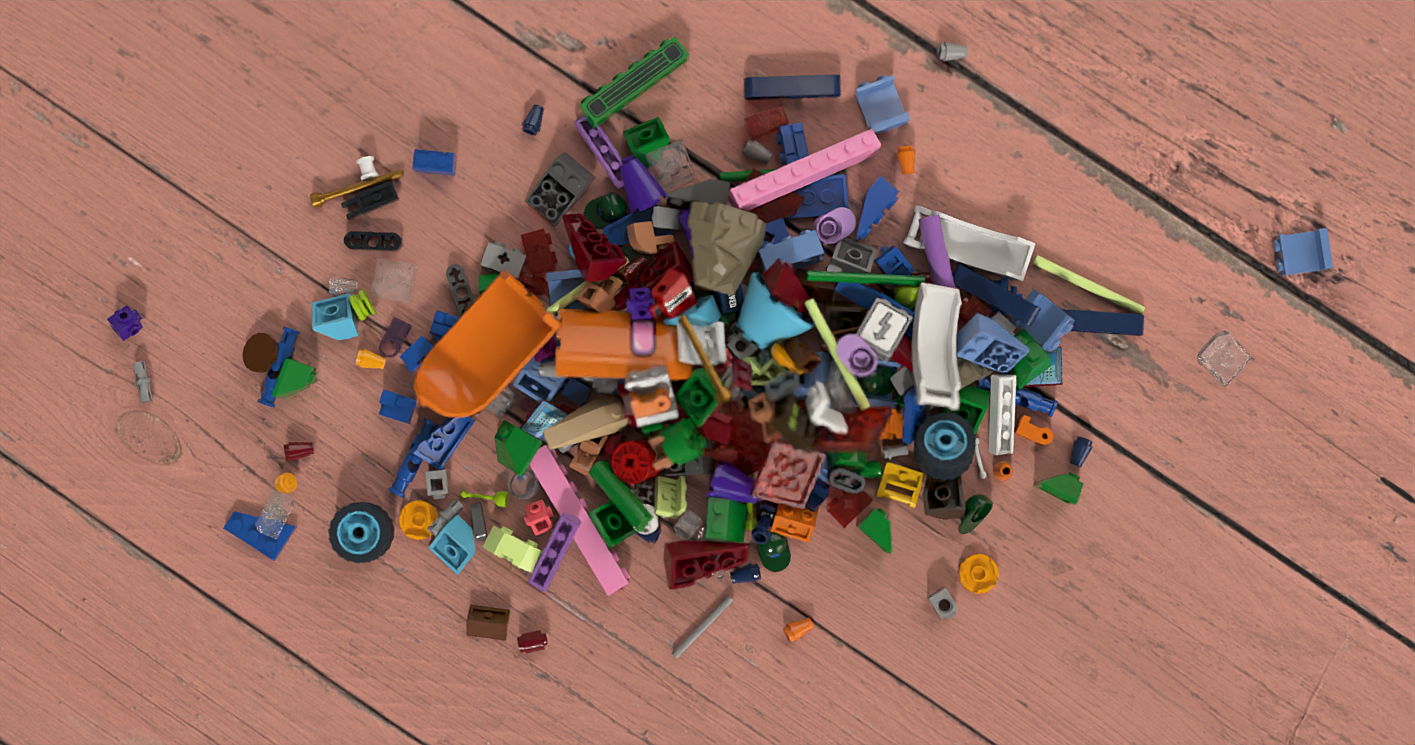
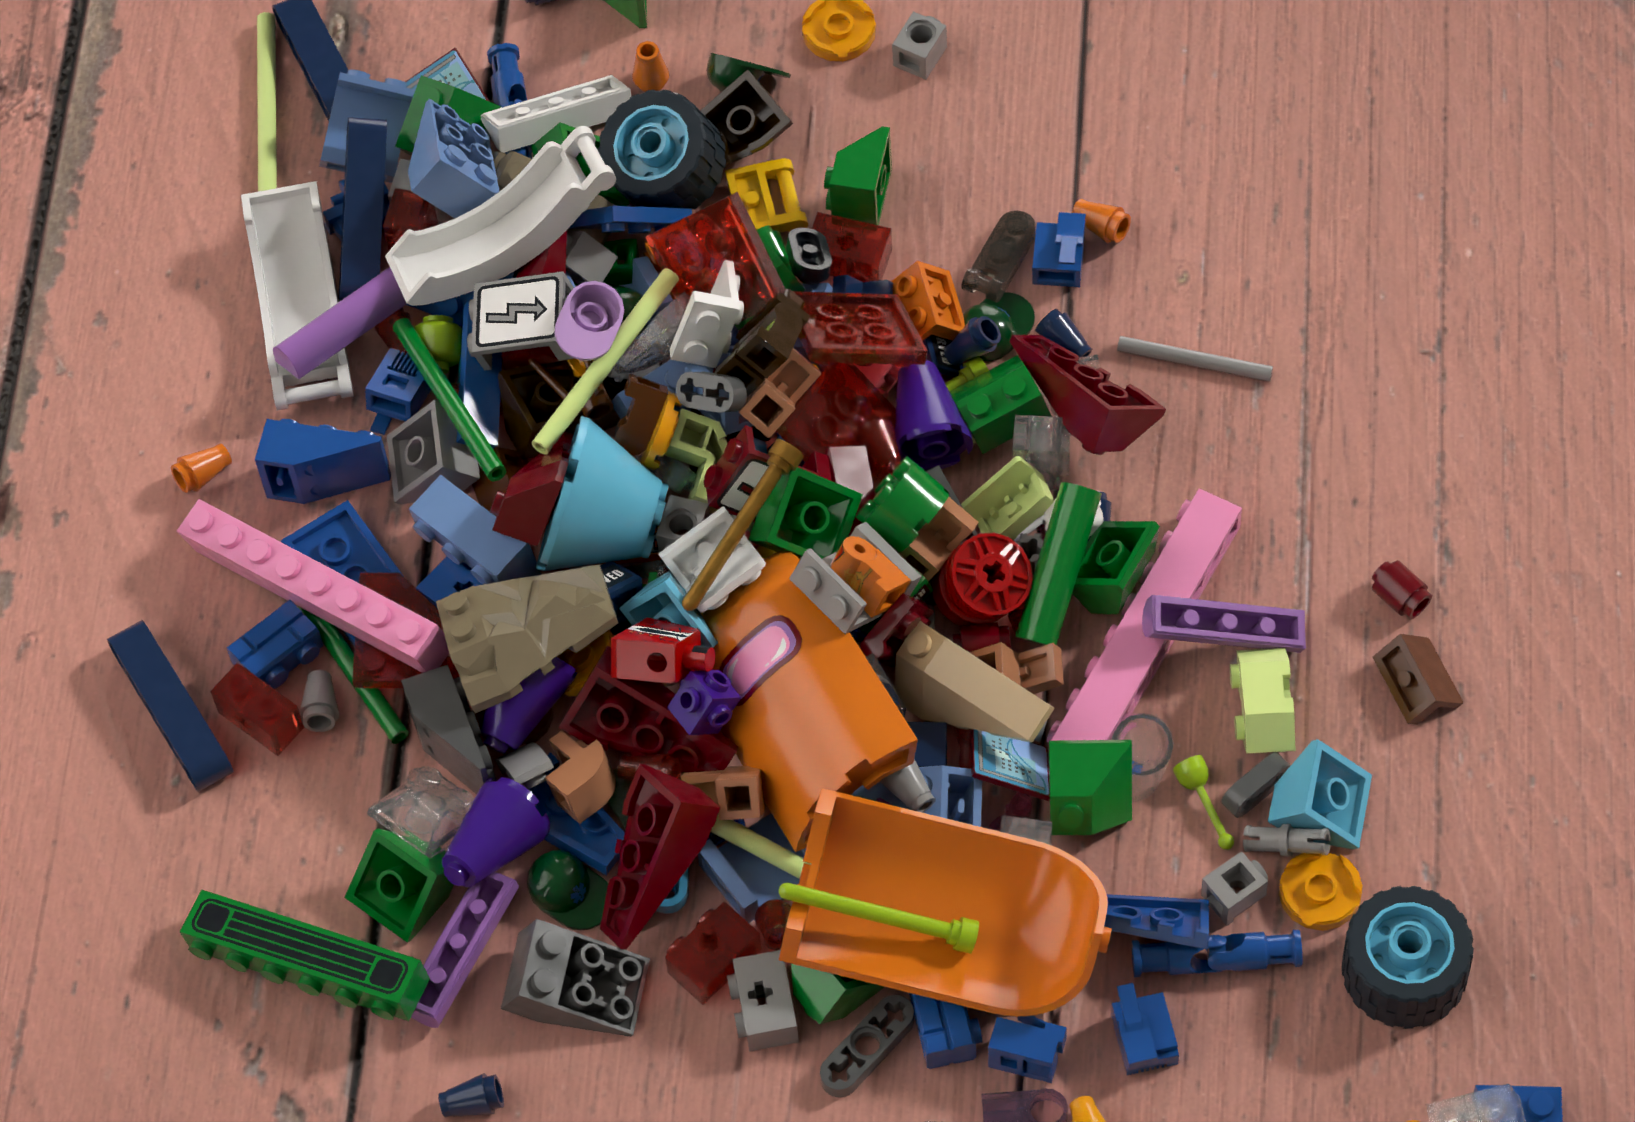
camera: 115 degrees left, 25 degrees down
(473, 351) = (959, 933): none -> lime piece
(539, 517) = (1182, 689): coral brick -> none
(792, 599) = (1059, 251): none -> blue piece
(807, 573) = (1001, 255): none -> clear smoke plate
(835, 225) = (382, 509): lavender cap -> none
(881, 105) = (127, 552): medium blue panel -> none
(1035, 434) = (561, 60): orange leg -> none

